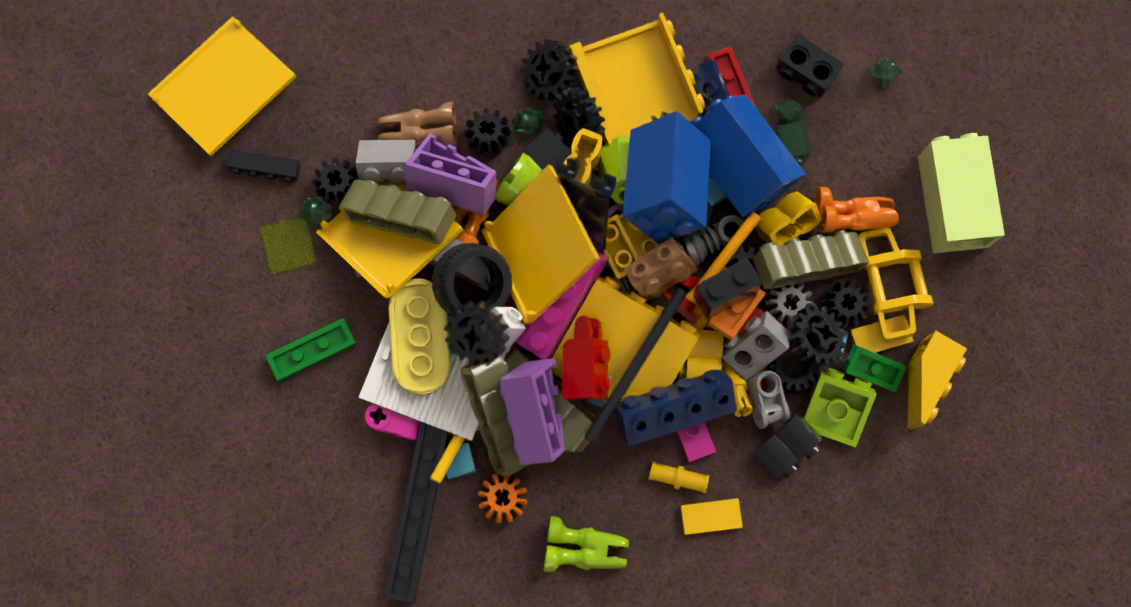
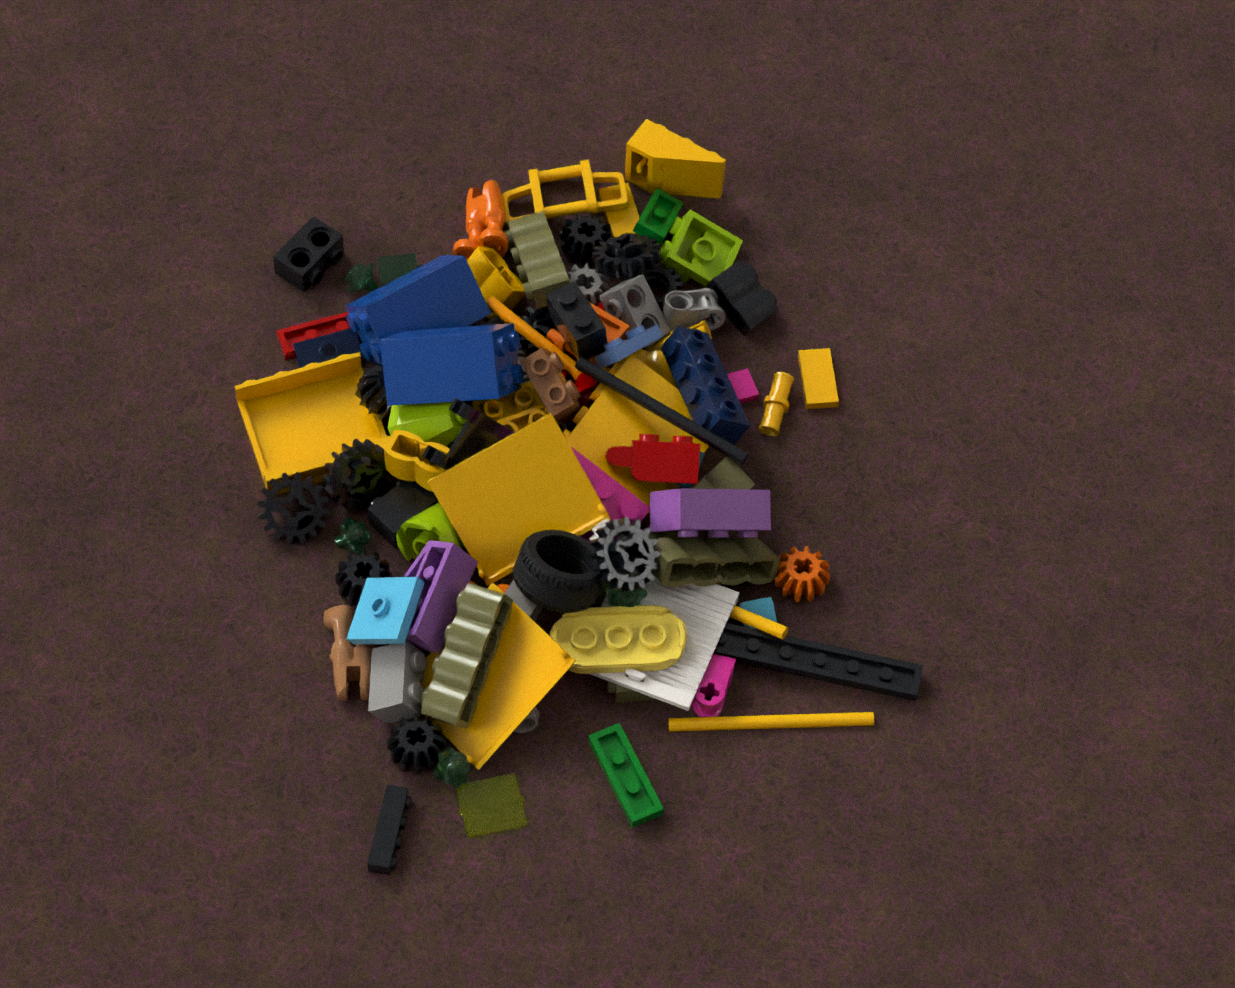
camera: 90 degrees left, 20 degrees down
(222, 86) = (280, 877): yellow container -> none
(364, 477) = (771, 721): none -> yellow piece
(434, 142) = (385, 610): none -> medium azure plate
(592, 552) = (856, 486): lime piece -> none
(701, 329) = (618, 349): none -> medium blue plate
(885, 70) = (320, 185): clear green plant -> none
(960, 193) = (470, 122): yellowish green brick -> none

